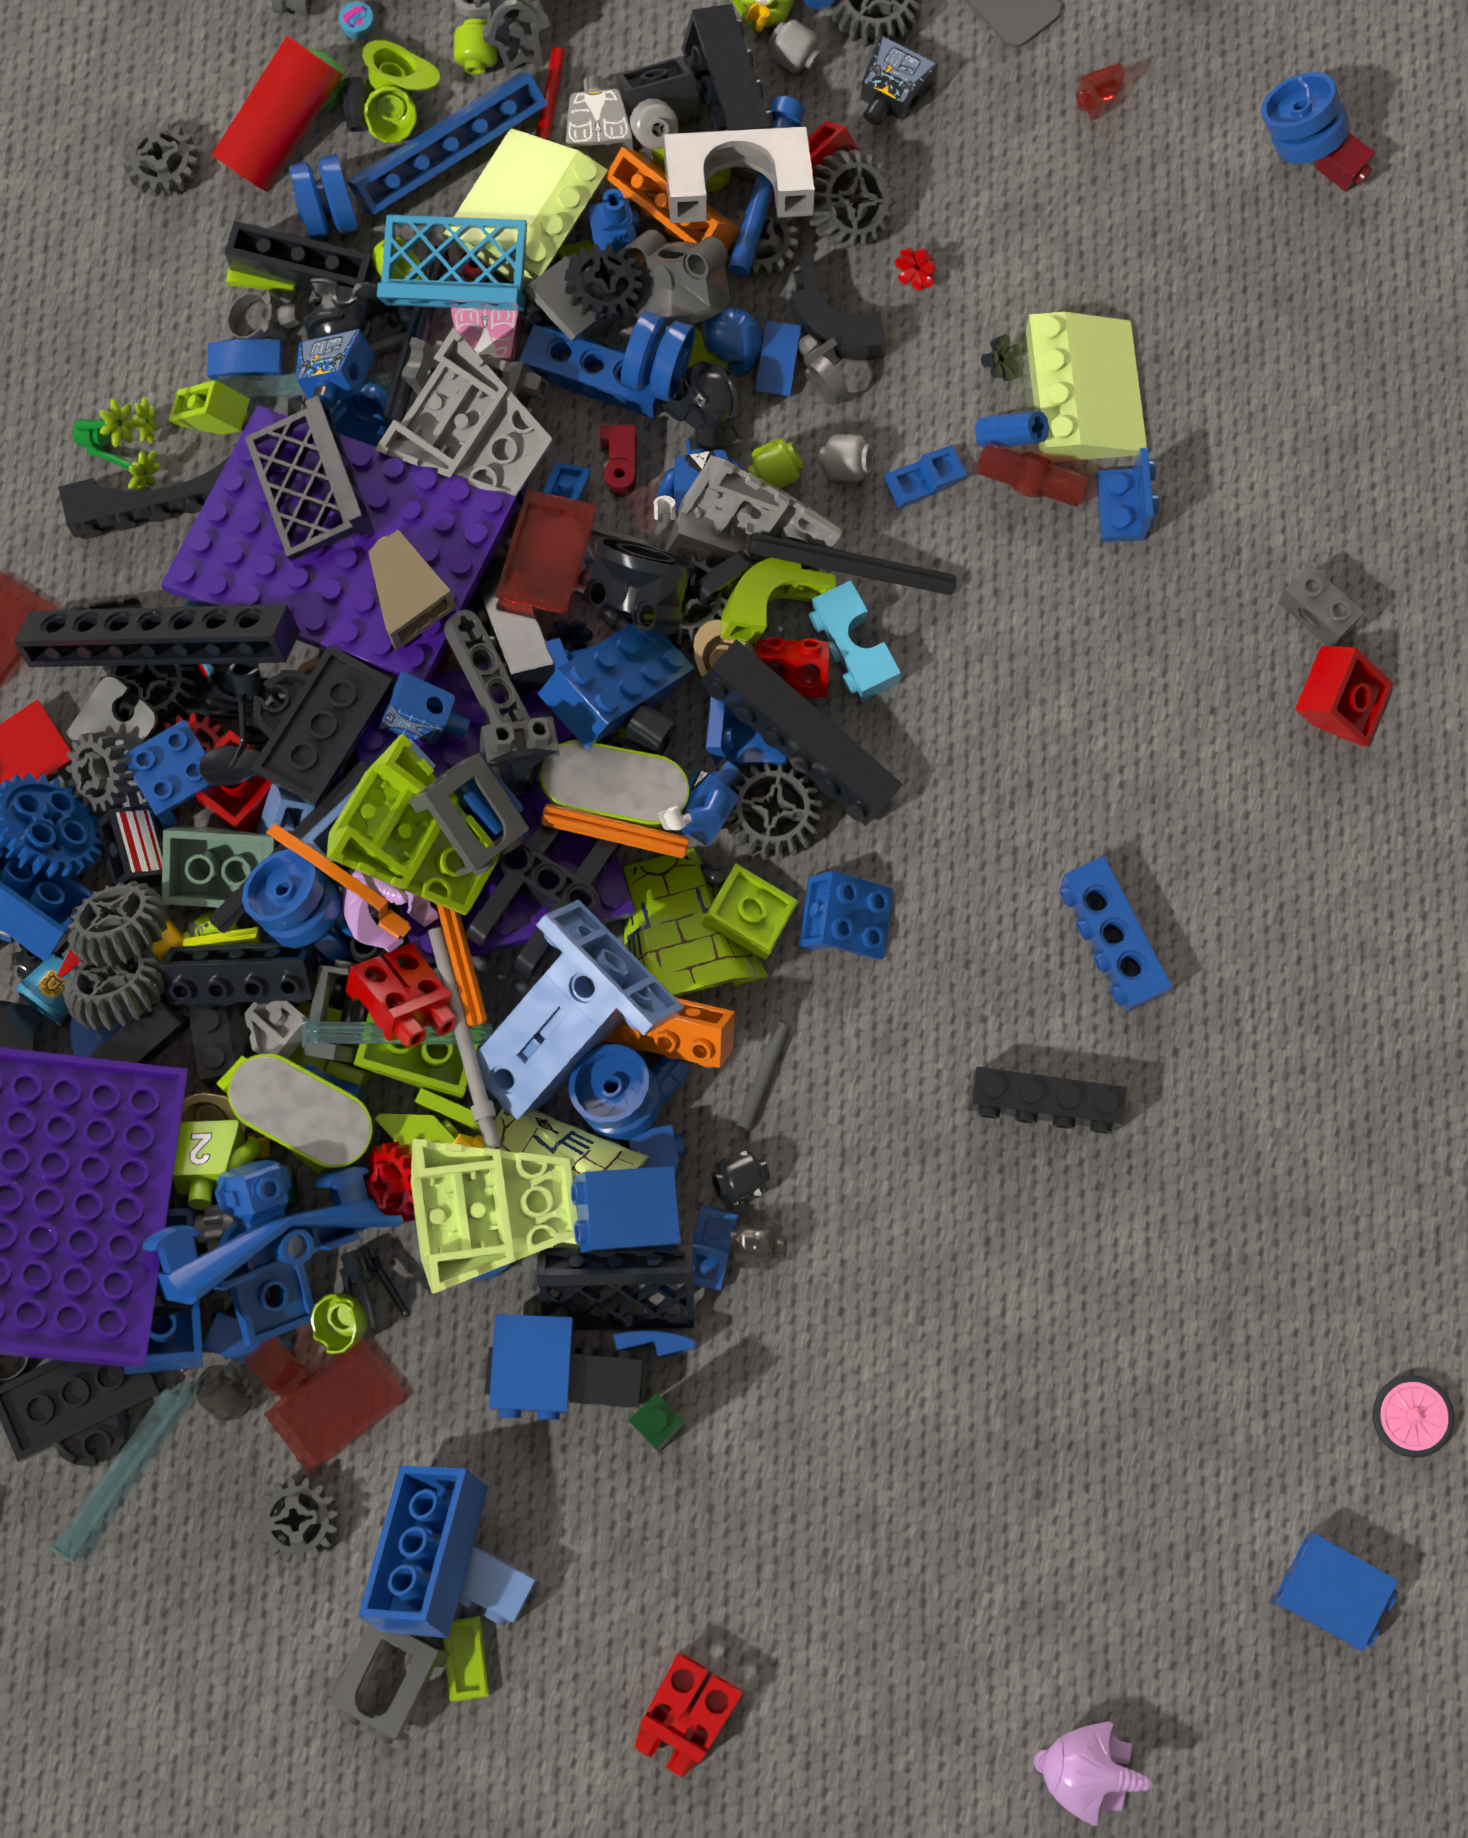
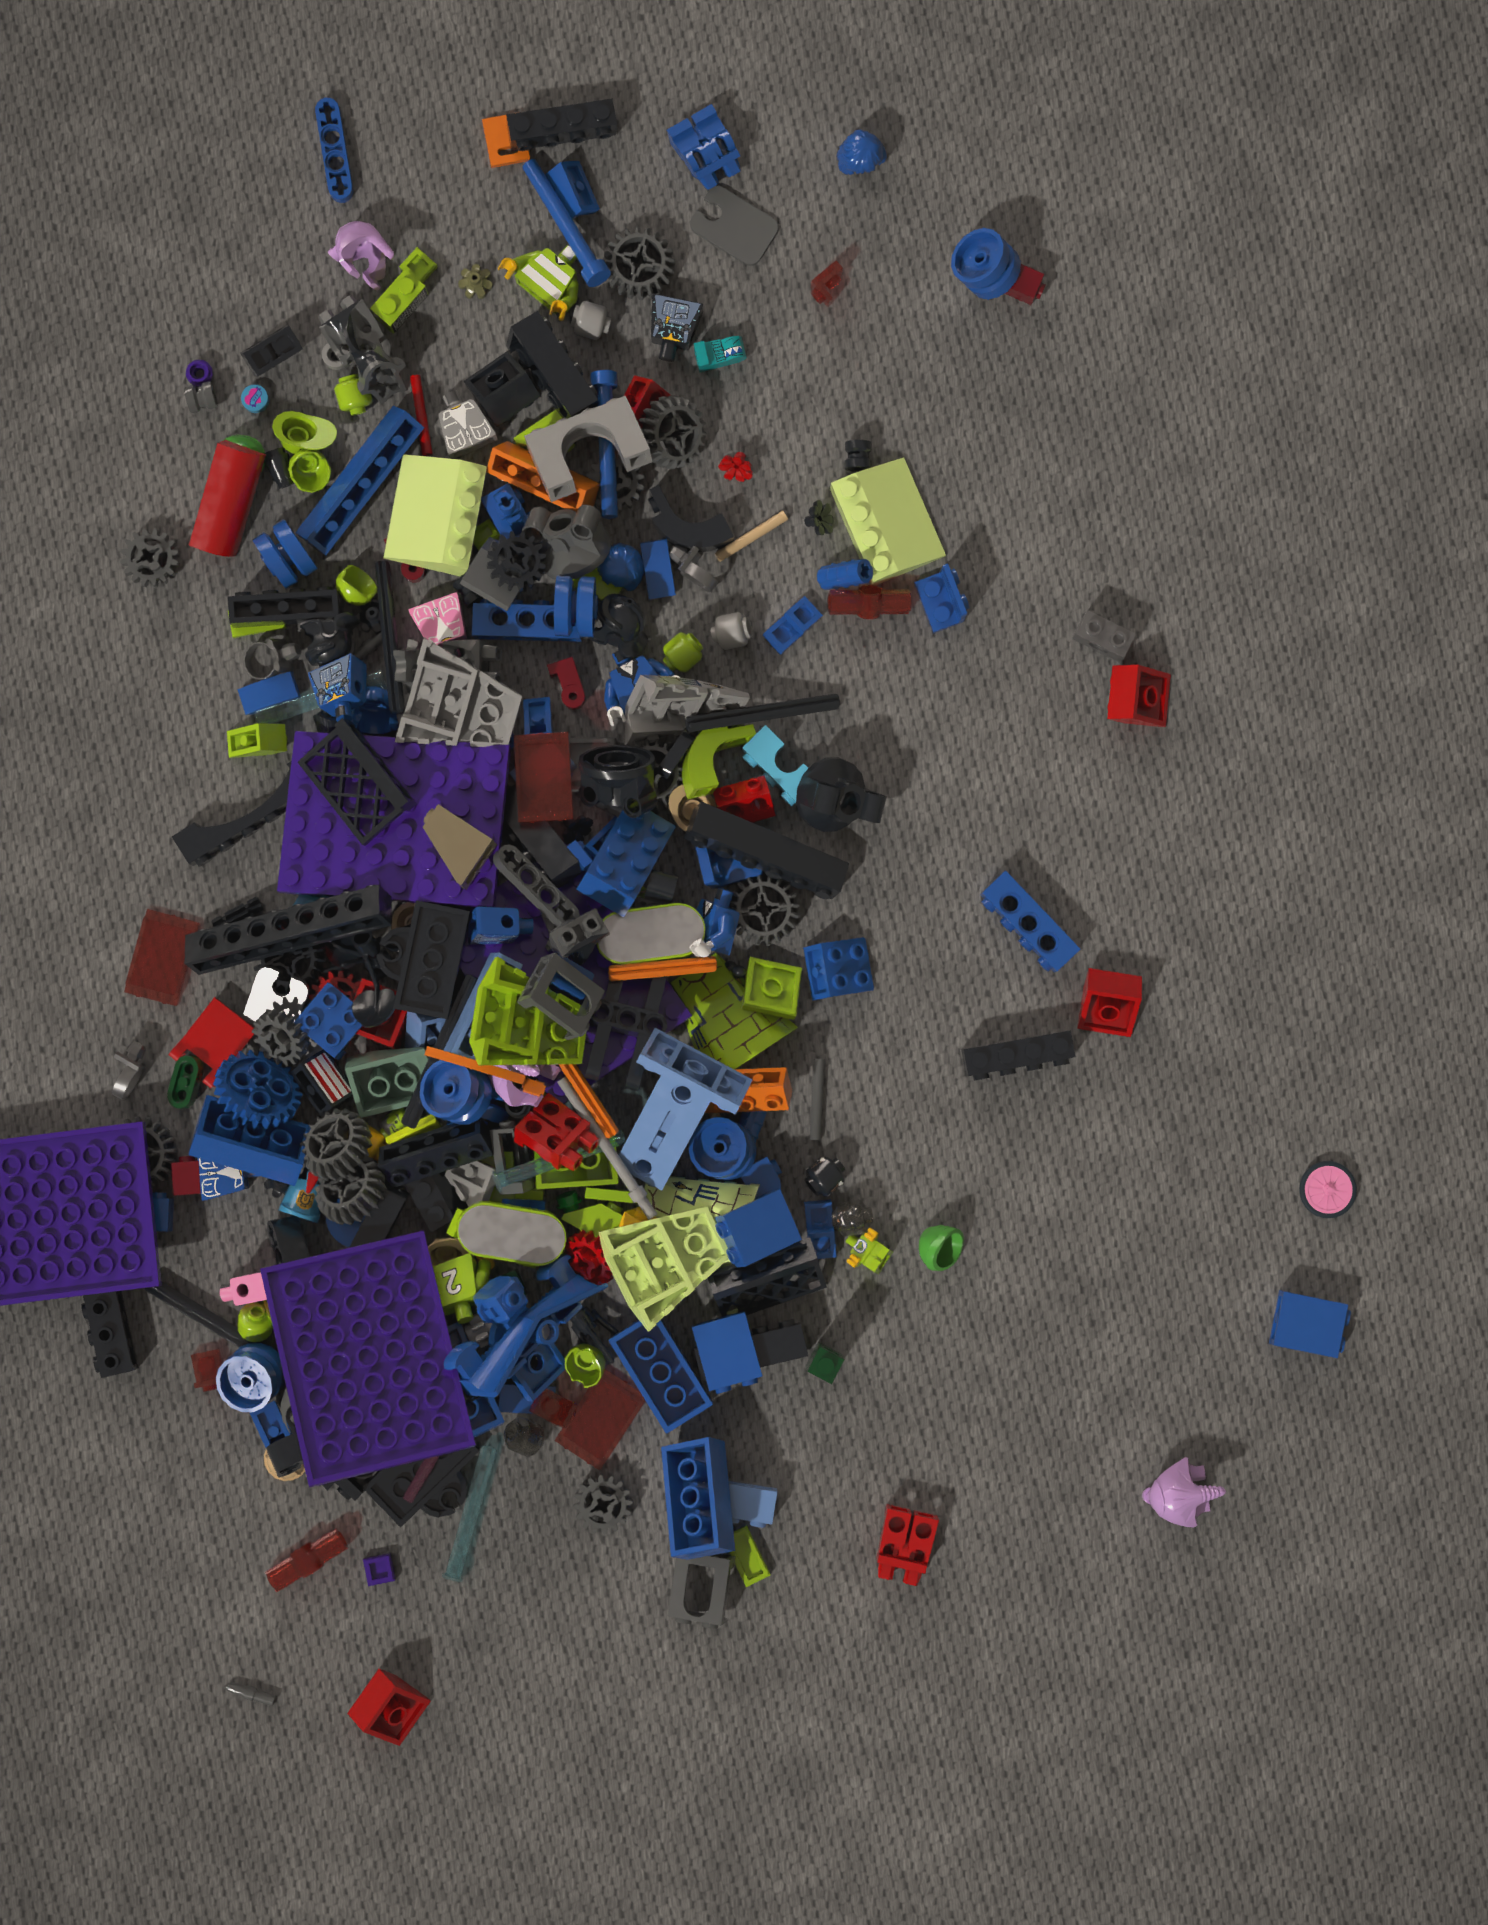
camera: 25 degrees left, 10 degrees up
(74, 1395) = (420, 1477): none -> clear pink piece
(97, 433) = (183, 784): lime plant -> none
(393, 1102) = (568, 1201): none -> green plate
(435, 1365) = (661, 1373): none -> blue brick
(451, 293) = (405, 602): dark azure fence -> none
(643, 121) = (510, 421): light grey head -> none
(665, 1343) = (811, 1306): blue slope -> none
(766, 1296) = (868, 1251): none -> lime piece
(864, 1321) = (940, 1247): none -> bright green hat
(889, 690) = (823, 789): none -> black piece
(908, 356) = (751, 536): none -> tan bar
(940, 131) = (719, 353): none -> teal leg
(1075, 294) = (858, 455): none -> black wheel
(1190, 1072) = (1110, 1002): none -> red slope

